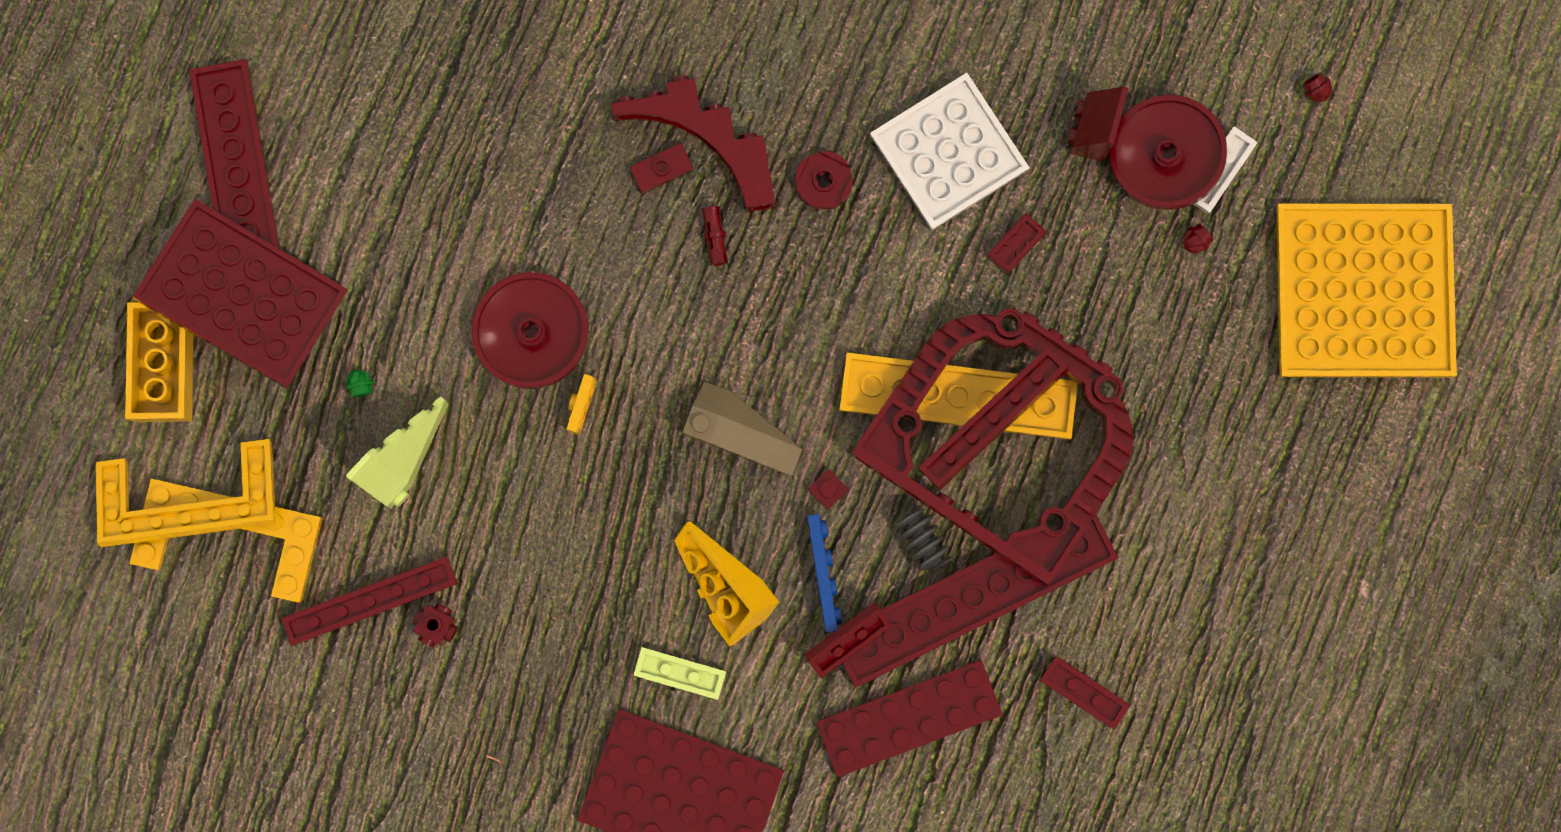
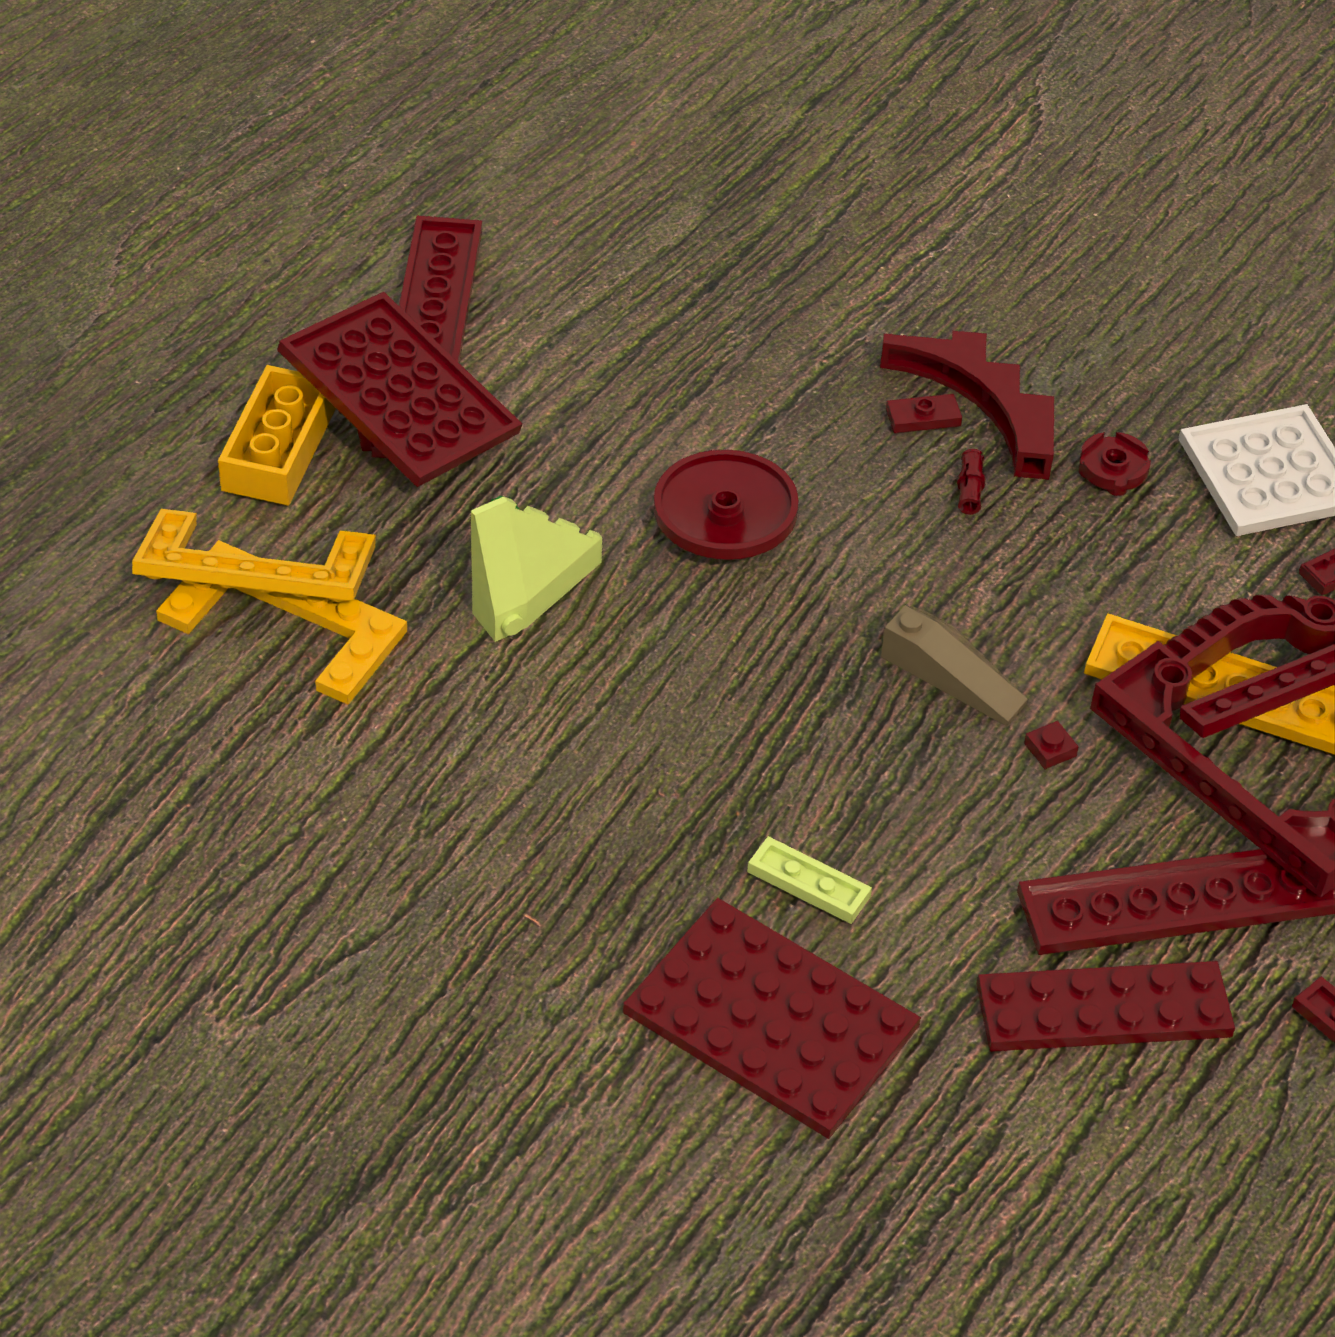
camera: 10 degrees right, 35 degrees down
(369, 601) = (435, 714): dark red plate -> none
(446, 625) = (510, 751): dark red brick -> none
(580, 403) = (764, 589): yellow plate -> none
(732, 591) = (898, 809): yellow wedge -> none
(822, 561) = (1027, 807): blue plate -> none
(847, 640) = (1044, 881): dark red plate -> none
(924, 541) = (1167, 814): dark grey piece -> none

